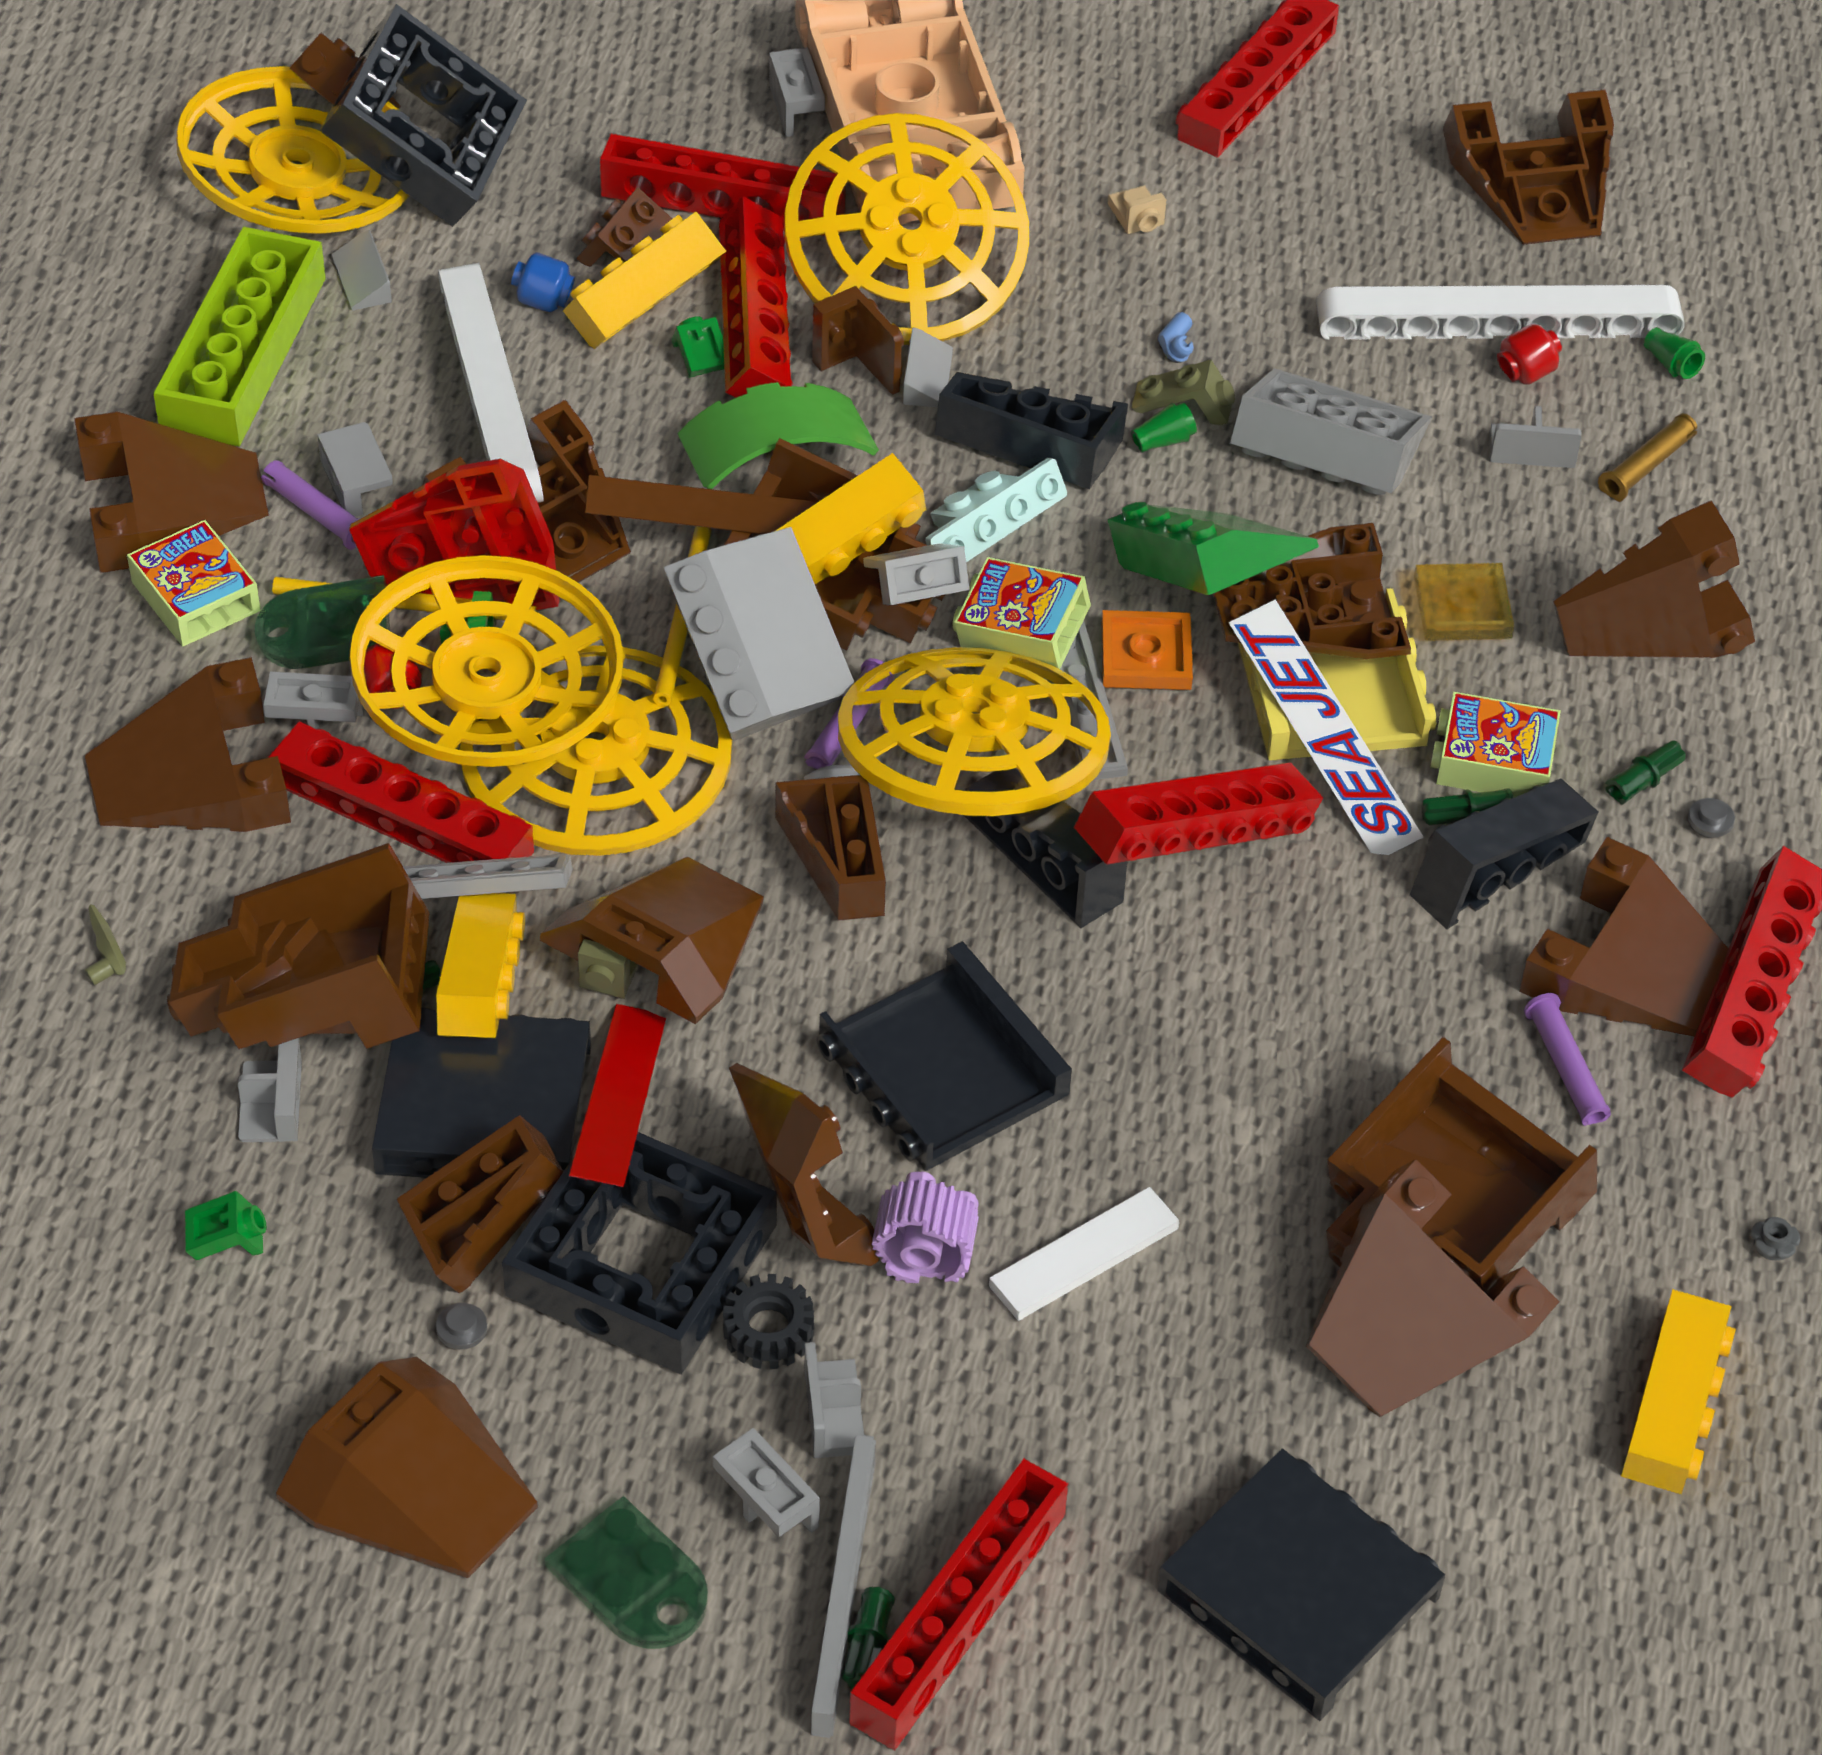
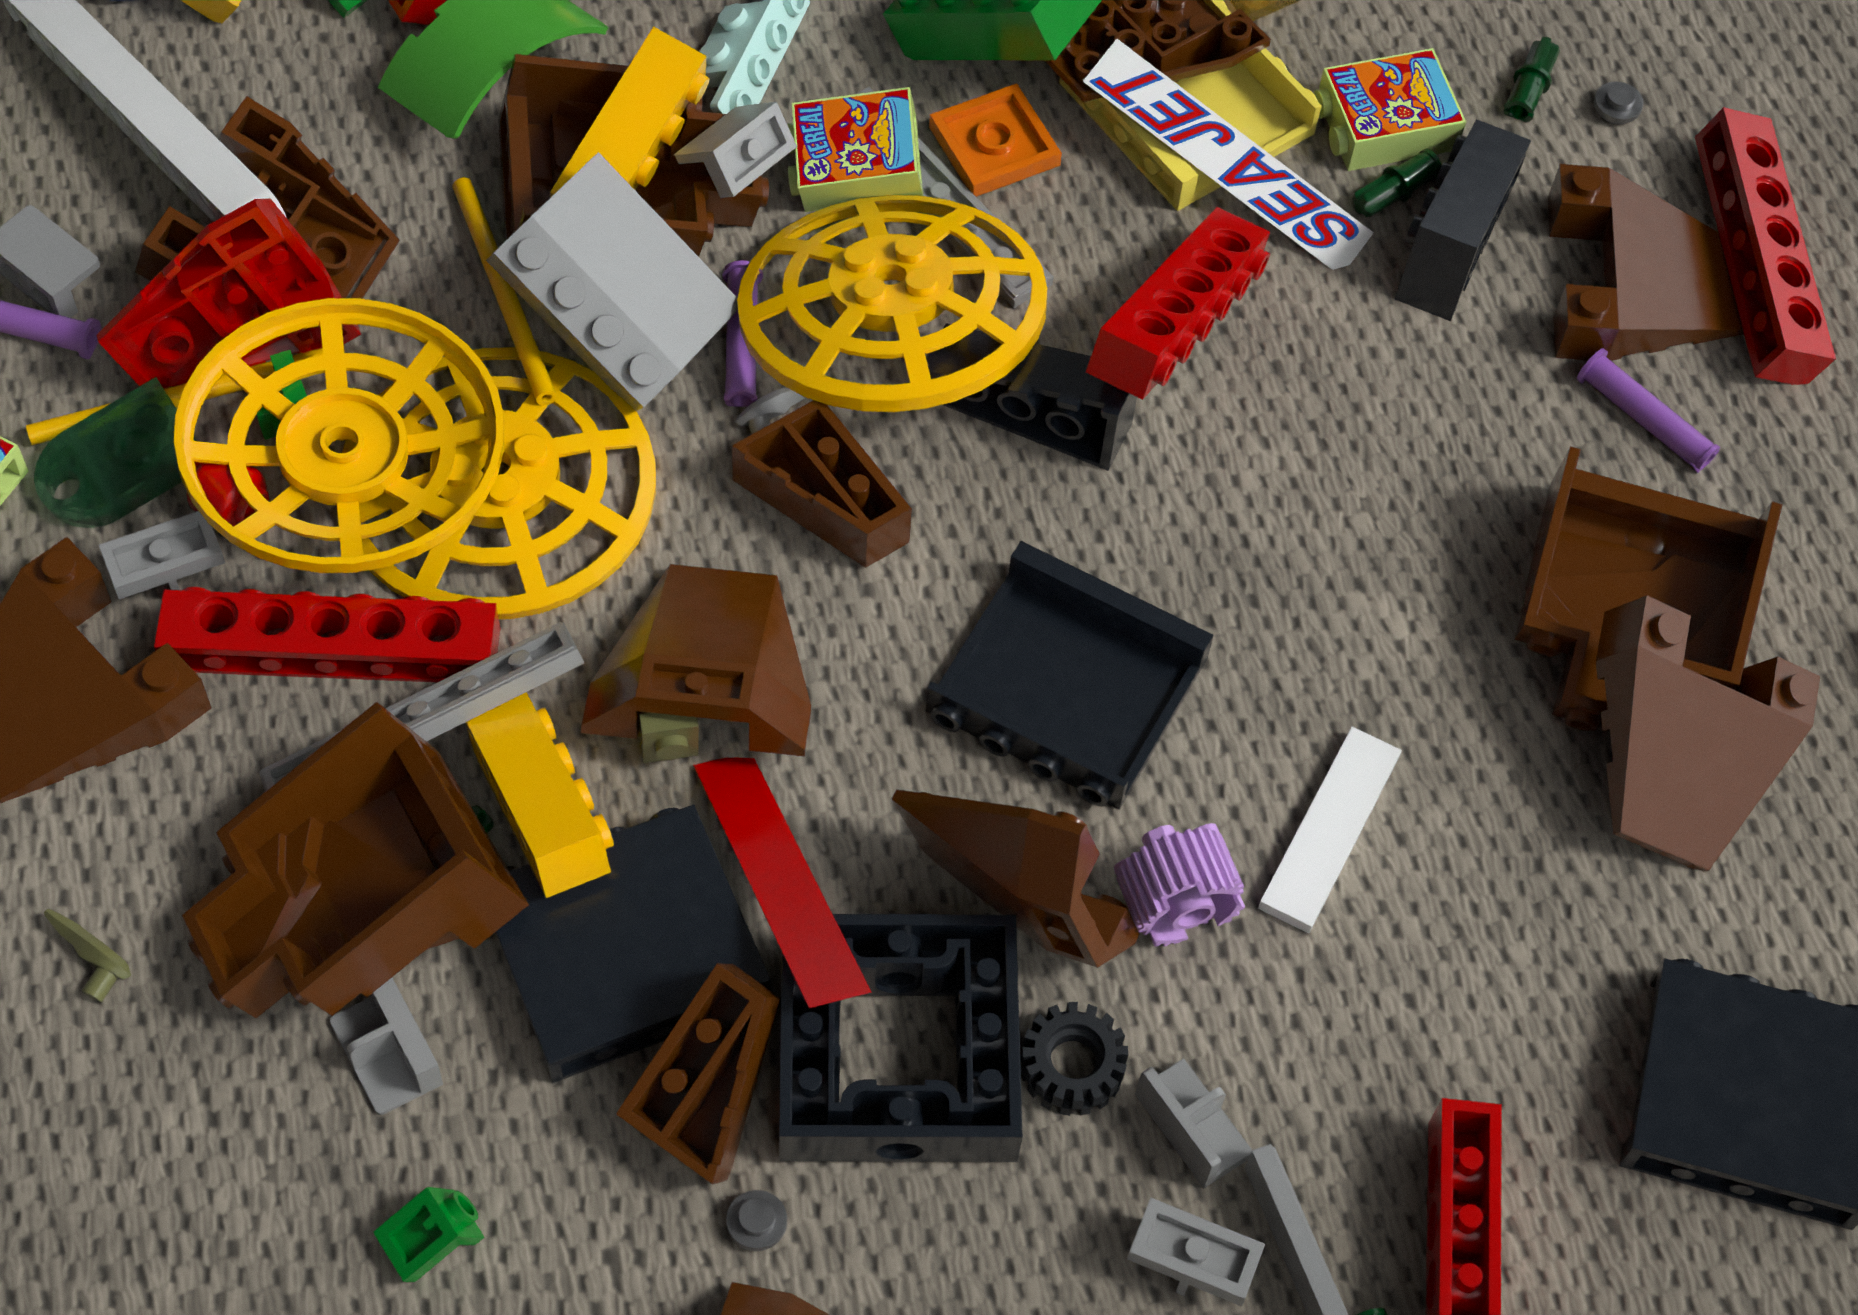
camera: 30 degrees left, 10 degrees up
(690, 505) = (462, 163): reddish brown sticker -> none

